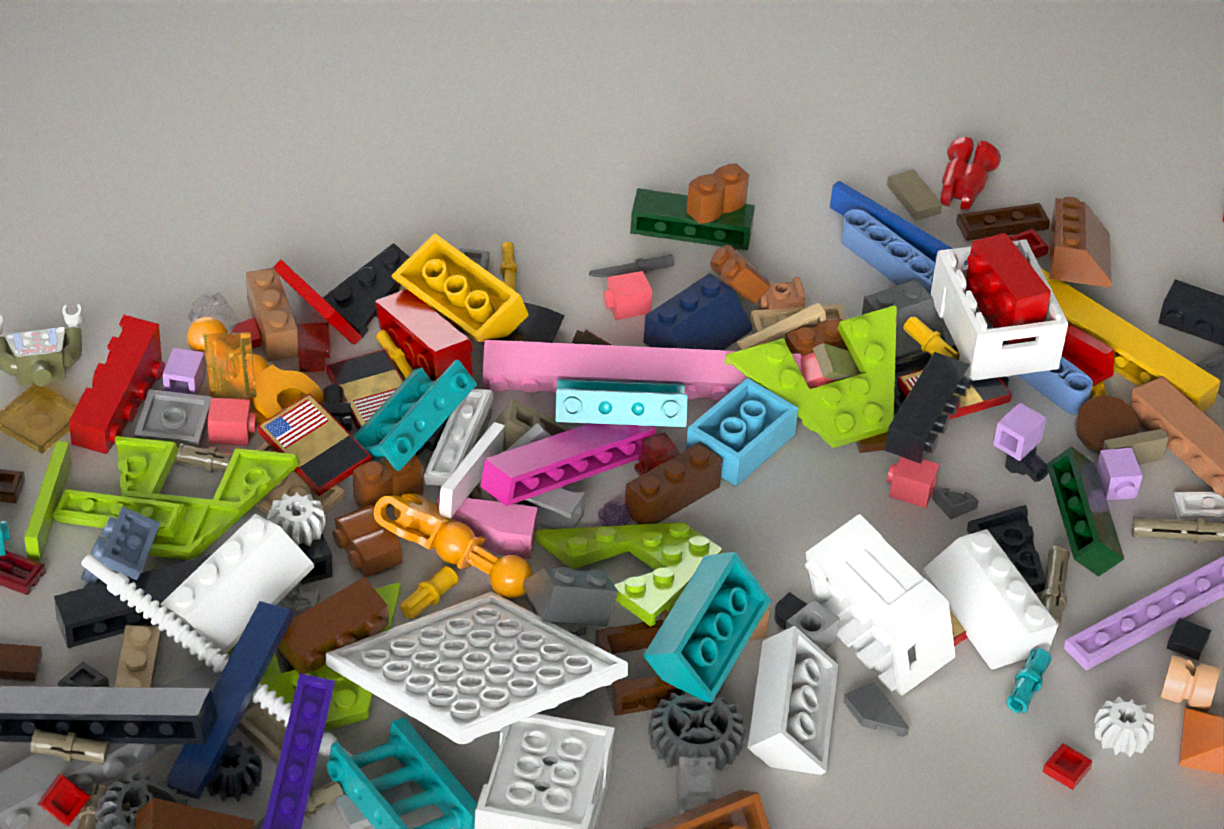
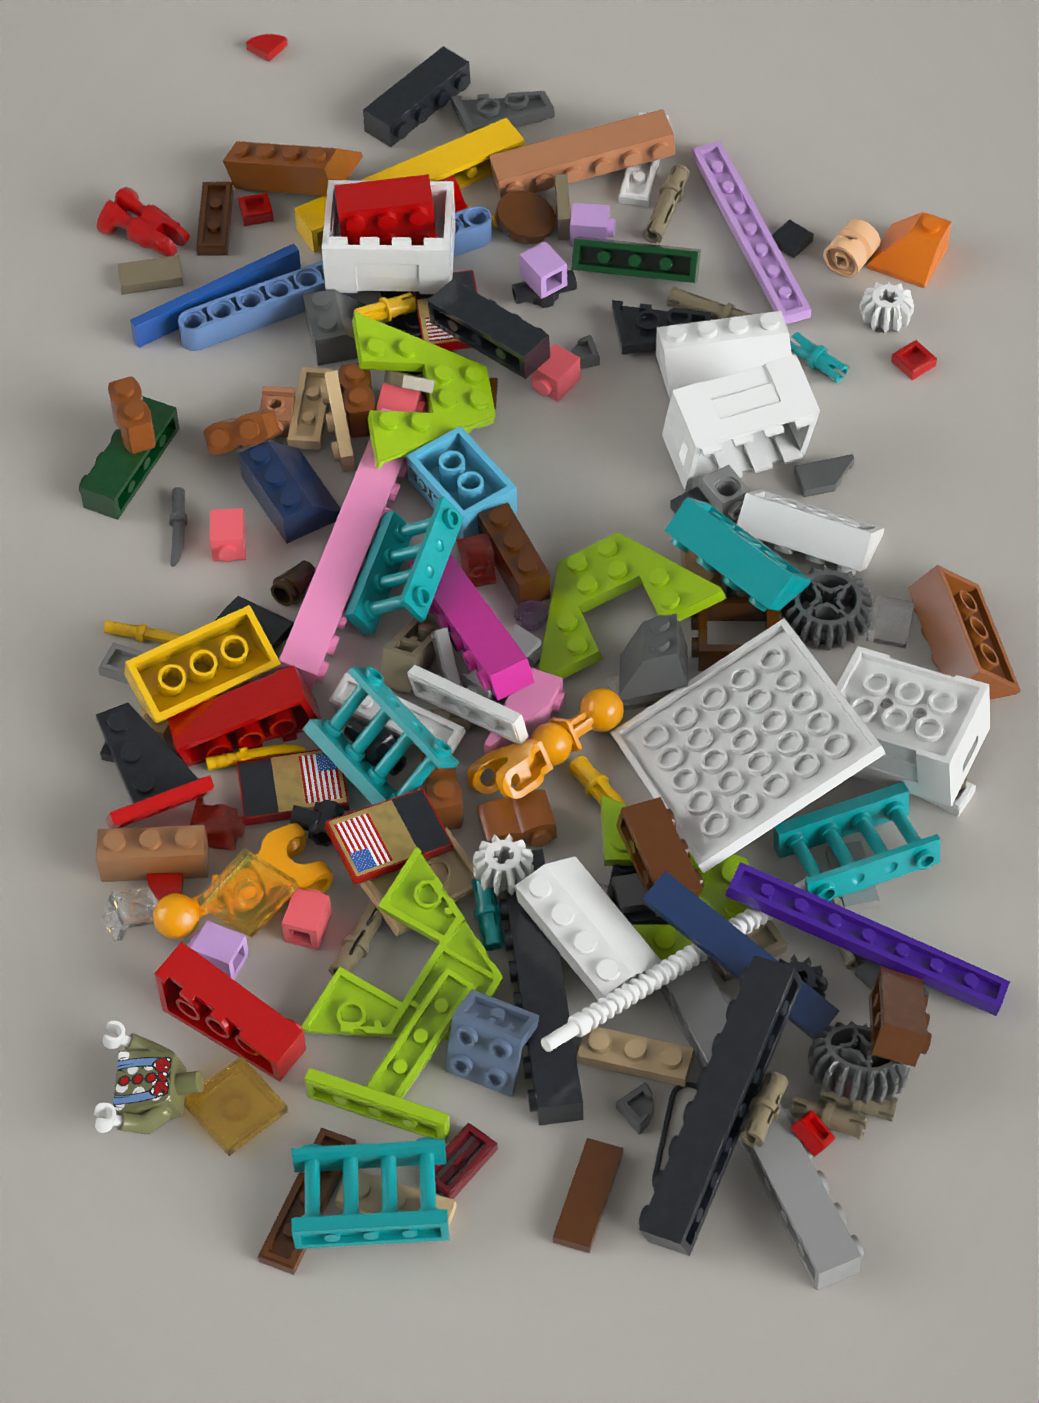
camera: 70 degrees left, 10 degrees up
(174, 417) = (286, 971): light grey plate -> none

